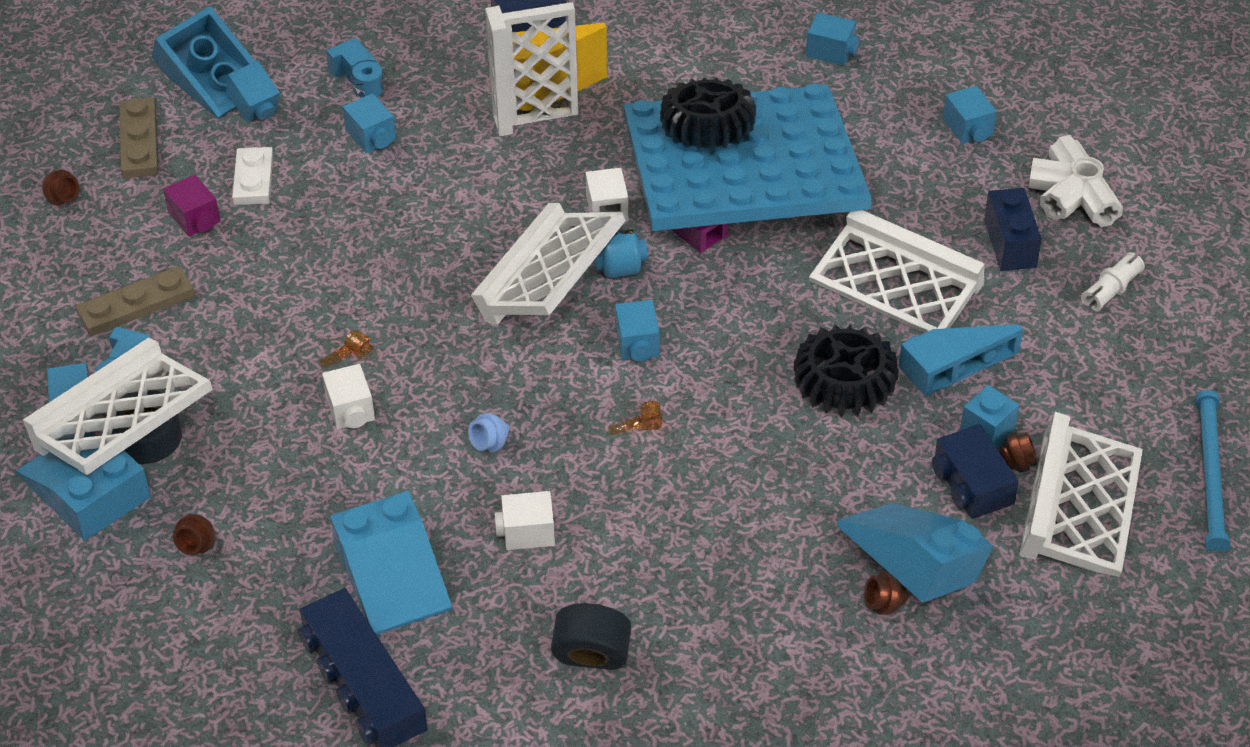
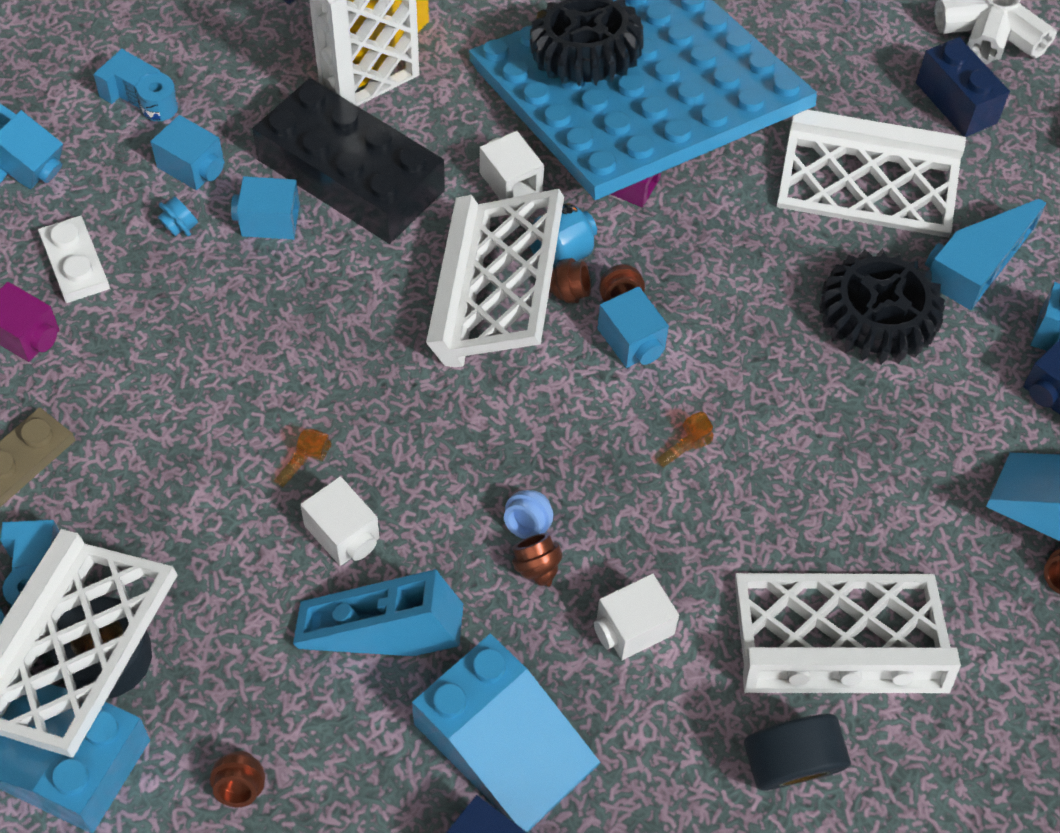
camera: 25 degrees left, 10 degrees up
(339, 166) = (176, 217): none -> dark azure plate
(348, 467) = (385, 618): none -> dark azure slope
(407, 176) = (266, 207): none -> dark azure brick
(478, 464) = (537, 558): none -> copper plate
(486, 158) = (349, 159): none -> black brick
(609, 286) = (570, 281): none -> copper plate
(649, 291) = (620, 280): none -> copper plate
(673, 600) = (847, 663): none -> white fence

